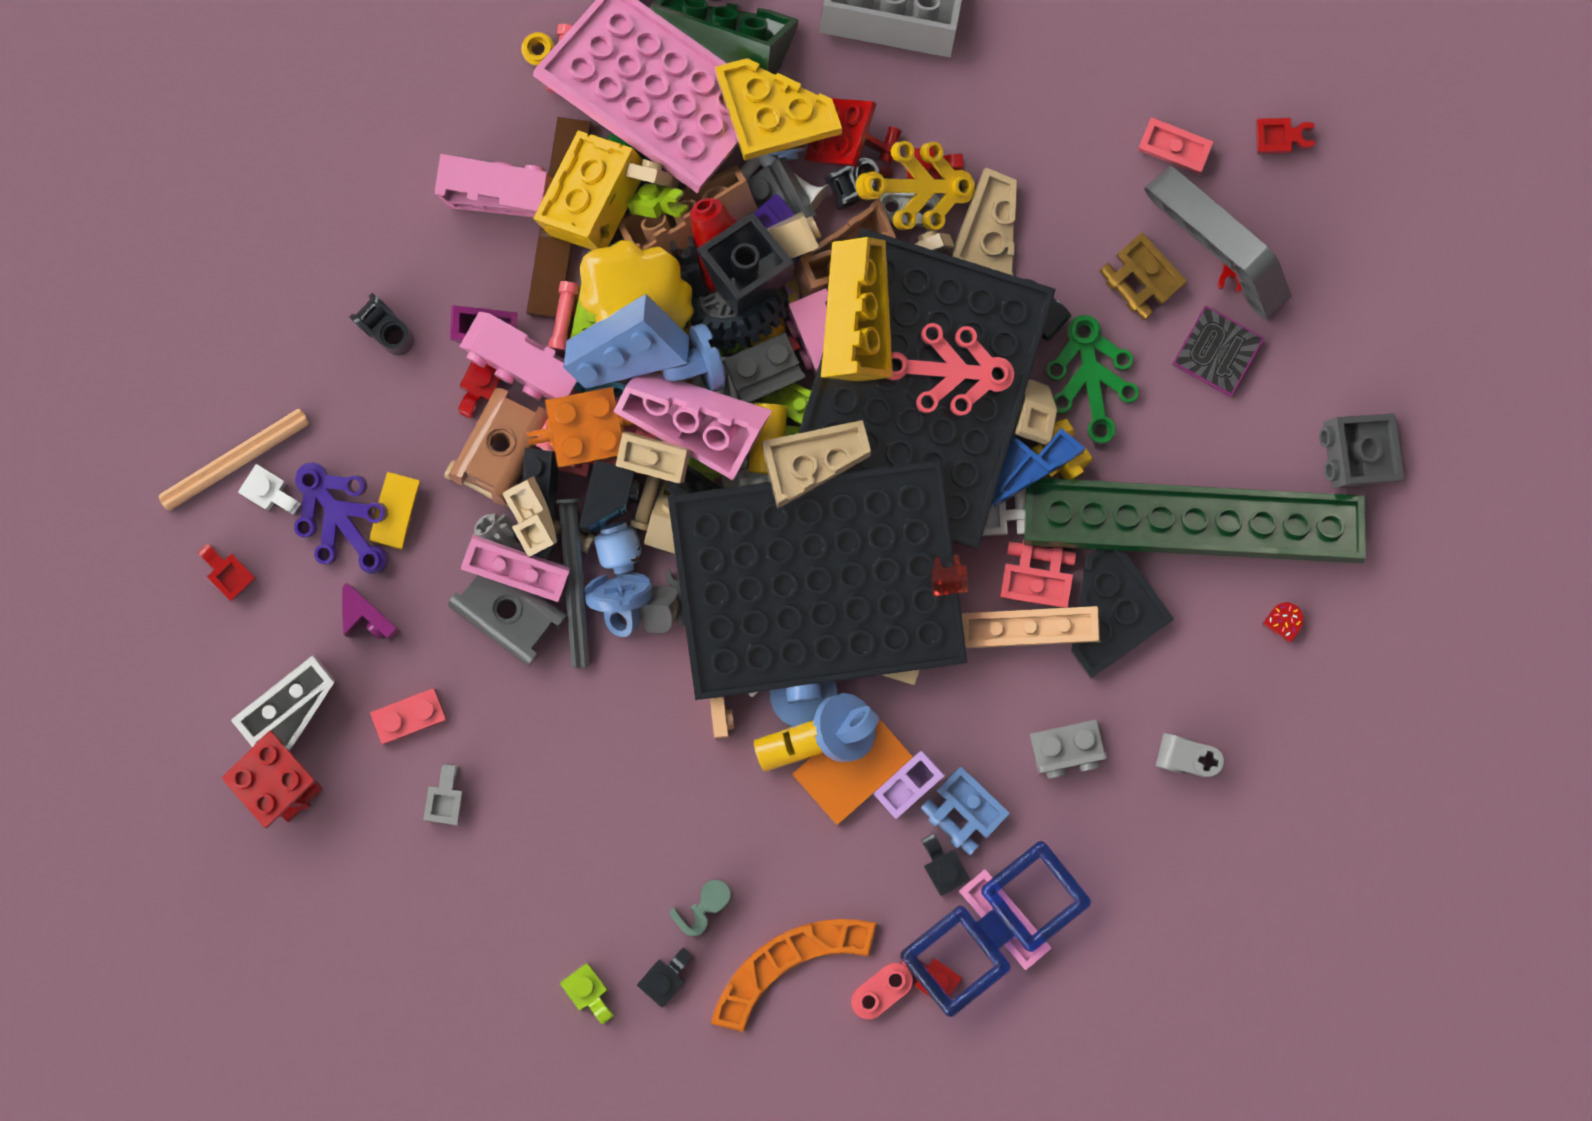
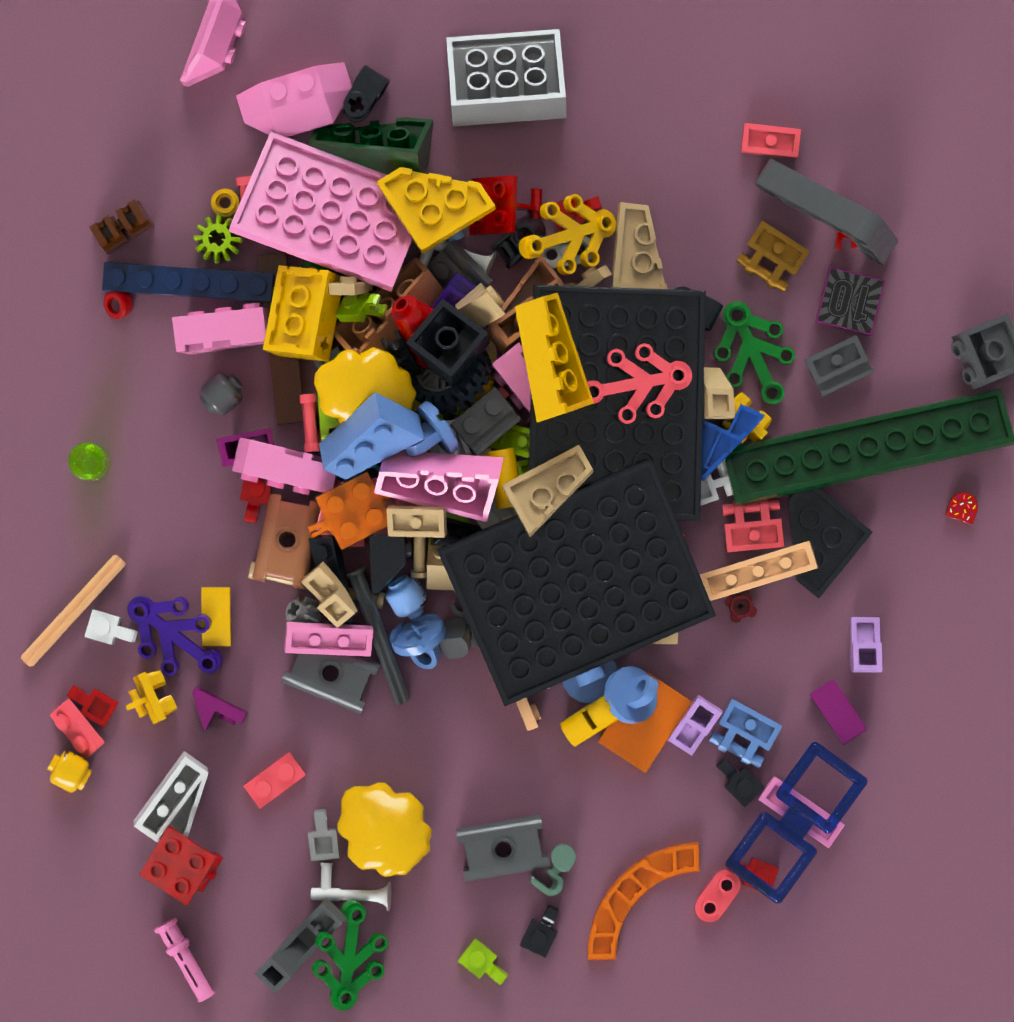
camera: 15 degrees left, 5 degrees up
(175, 640) = (69, 771): none -> yellow head
(198, 594) = (77, 729): none -> coral plate
(241, 877) = (178, 948): none -> bright pink pin
(292, 566) = (156, 708): none -> yellow hips
(301, 294) = (89, 461): none -> clear neon green wheel
(379, 321) = (159, 465): black piece -> none
(383, 912) = (299, 945): none -> dark grey arch
(394, 129) = (125, 301): none -> red piece
(426, 36) = (110, 231): none -> reddish brown legs
(434, 947) = (349, 959): none -> green plant
(470, 125) = (188, 282): none -> dark blue plate
(473, 260) = (221, 394): none -> dark grey head
(493, 882) = (336, 894): none -> white piece
(505, 87) = (213, 248): none -> lime gear
(517, 805) = (383, 829): none -> yellow piece
(623, 873) = (487, 862): none -> dark grey piece
(949, 579) = (685, 555): clear red tile -> none
(1006, 670) = (748, 609): none -> dark red plate
(1068, 747) = (815, 659): light grey bracket -> none
(1079, 815) = (838, 712): none -> magenta slope
(1131, 746) = (865, 645): none -> lavender brick
(1182, 756) = (909, 640): light grey piece -> none
(1185, 420) = (839, 365): none -> dark grey plate
(1277, 135) = (852, 109): red plate -> none

